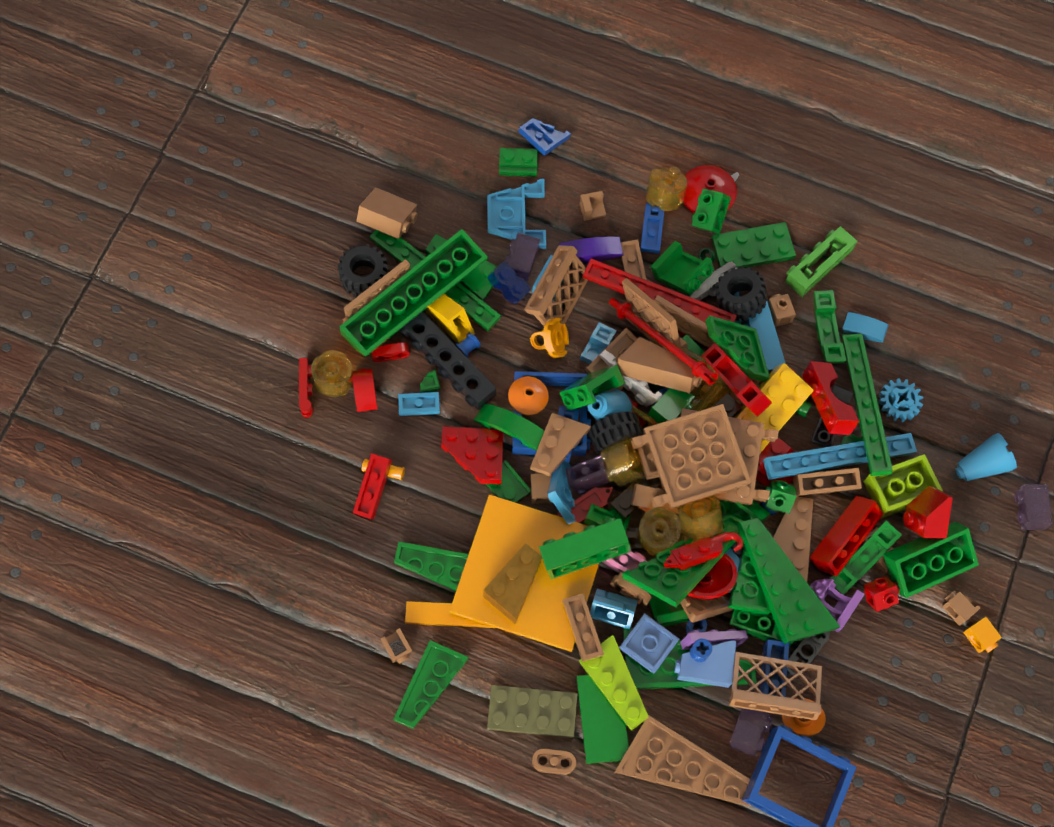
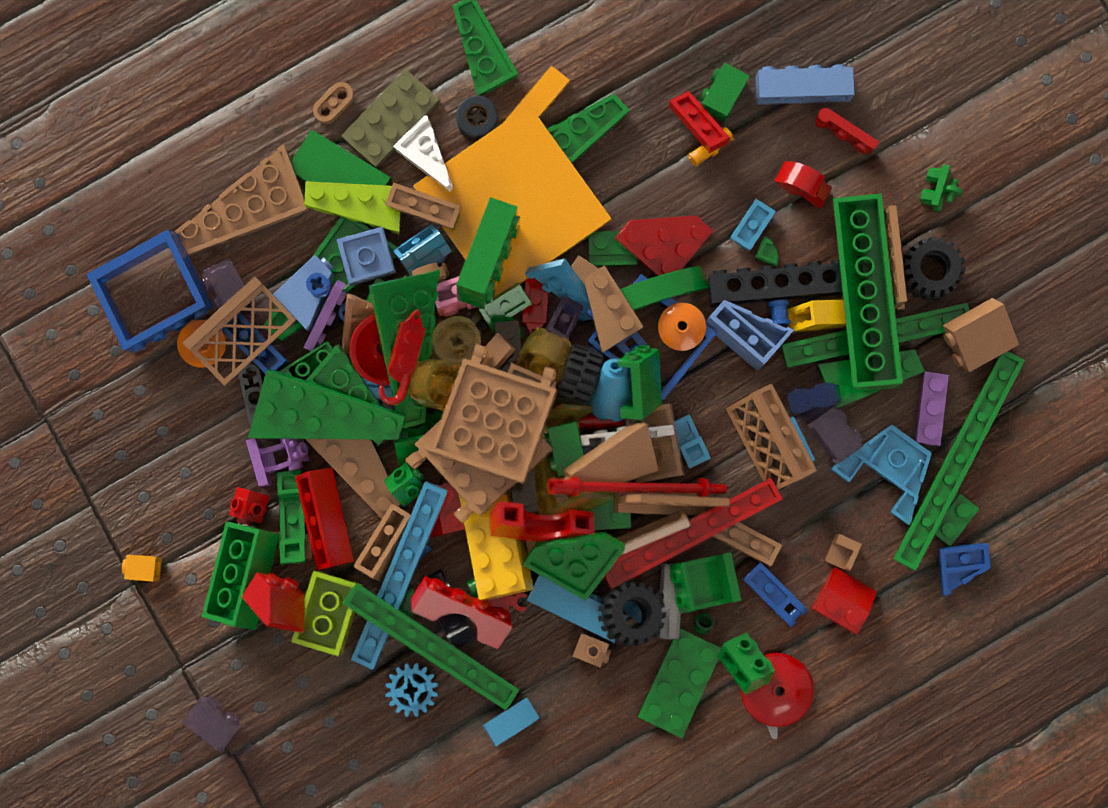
camera: 135 degrees right, 15 degrees up
(291, 437) = (804, 85): none -> medium blue brick
(293, 305) = (942, 179): none -> green hips
(323, 377) = (844, 150): clear yellow brick -> none
(336, 487) = (724, 92): none -> green brick
(390, 352) = (824, 236): red beam -> none
(397, 647) = (534, 41): medium nougat window -> none
(457, 215) = (931, 408): none -> medium lavender plate
(479, 176) = (958, 460): none -> green plate
(483, 637) = (476, 110): none -> black wheel
(499, 352) = (746, 333): none -> medium blue wedge
(513, 582) = (507, 171): pearl gold wedge -> none
(540, 664) = (423, 151): none -> white wing
(554, 336) = (724, 397): light orange tile -> none
(596, 248) = (793, 511): dark purple slope -> none
(623, 185) = (844, 601): none -> red slope
(666, 188) = (805, 639): clear yellow brick -> none
(827, 327) = (537, 682): green slope -> none
(839, 240) = (616, 778): bright green brick -> none
(959, 607) = (182, 569): medium nougat brick -> none
(987, 460) = (290, 717): dark azure cone -> none

